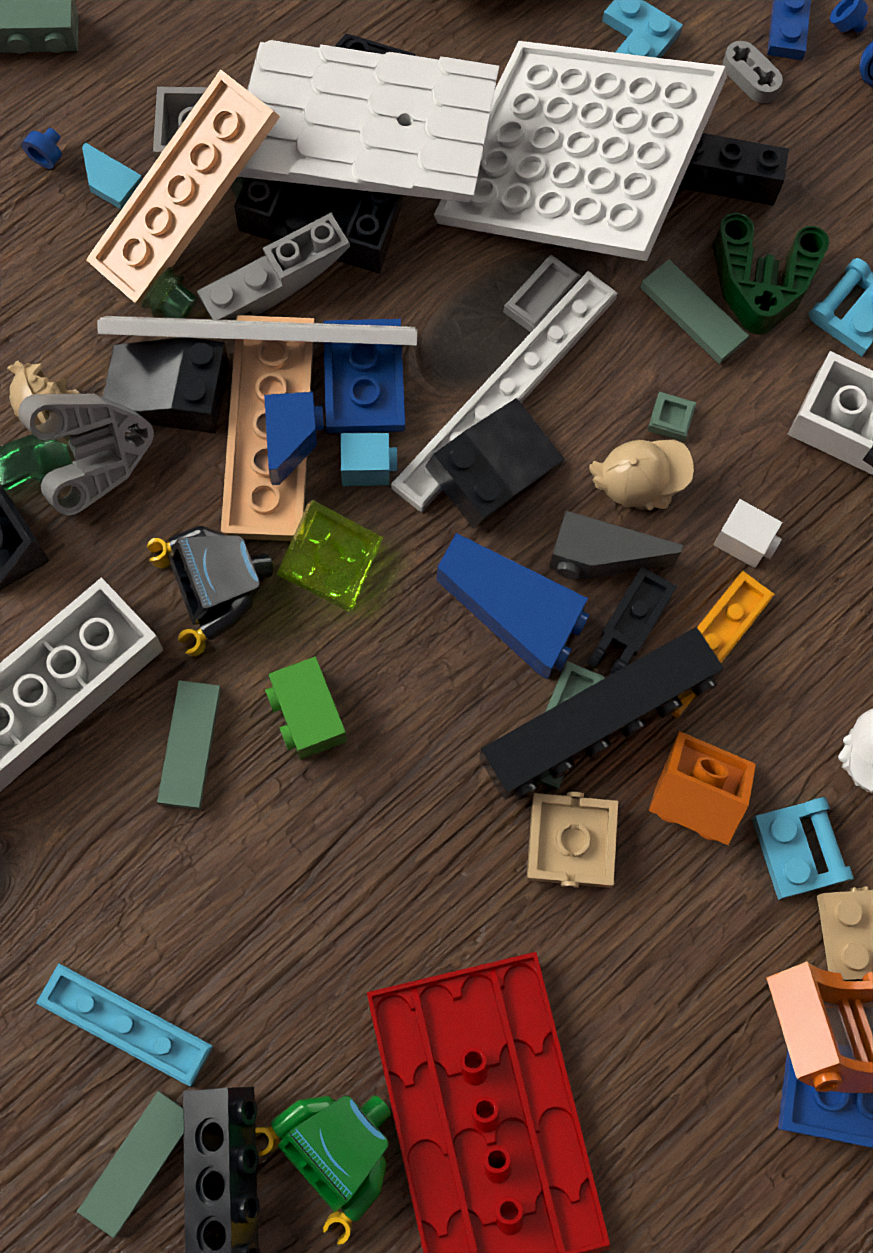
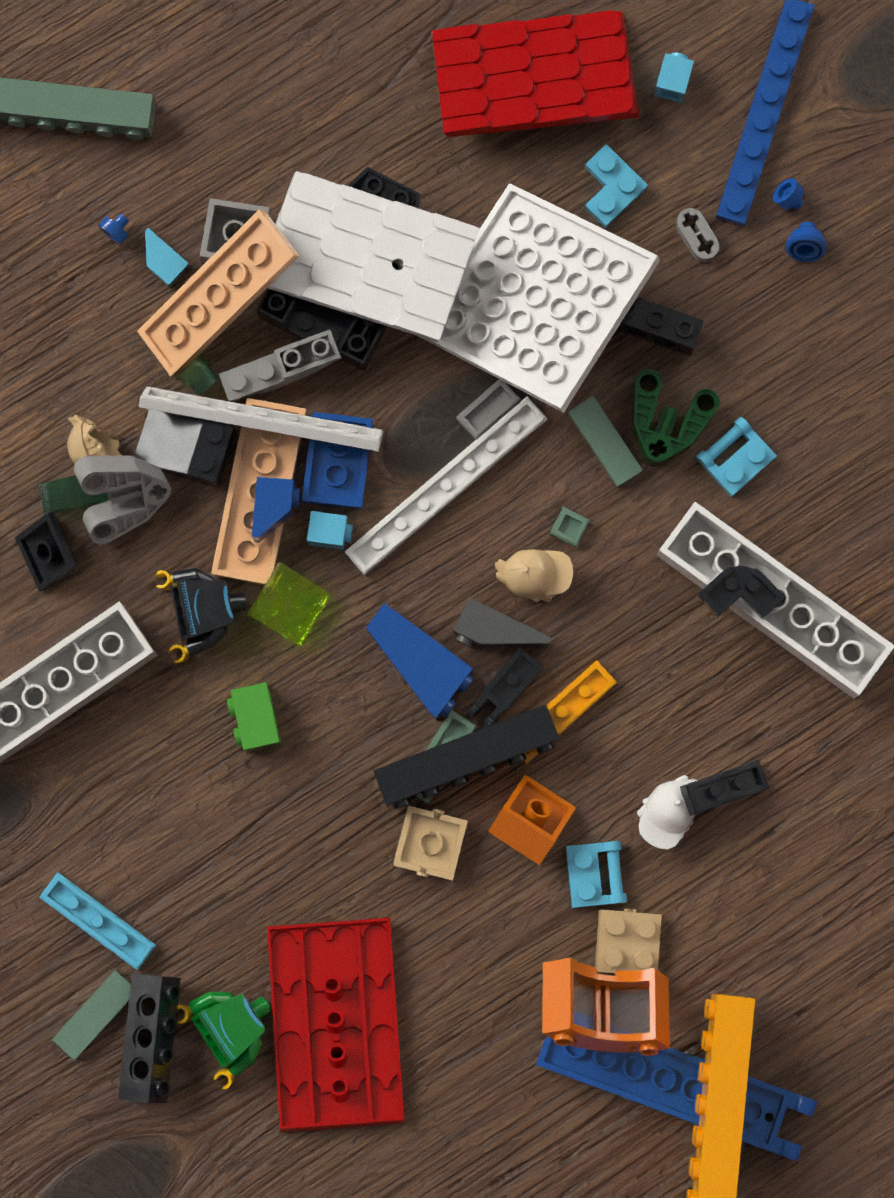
camera: 15 degrees right, 10 degrees up
(189, 745) = (167, 730): sand green tile -> none
(493, 462) = (426, 547): black slope -> none
(749, 534) = (606, 633): white brick -> none

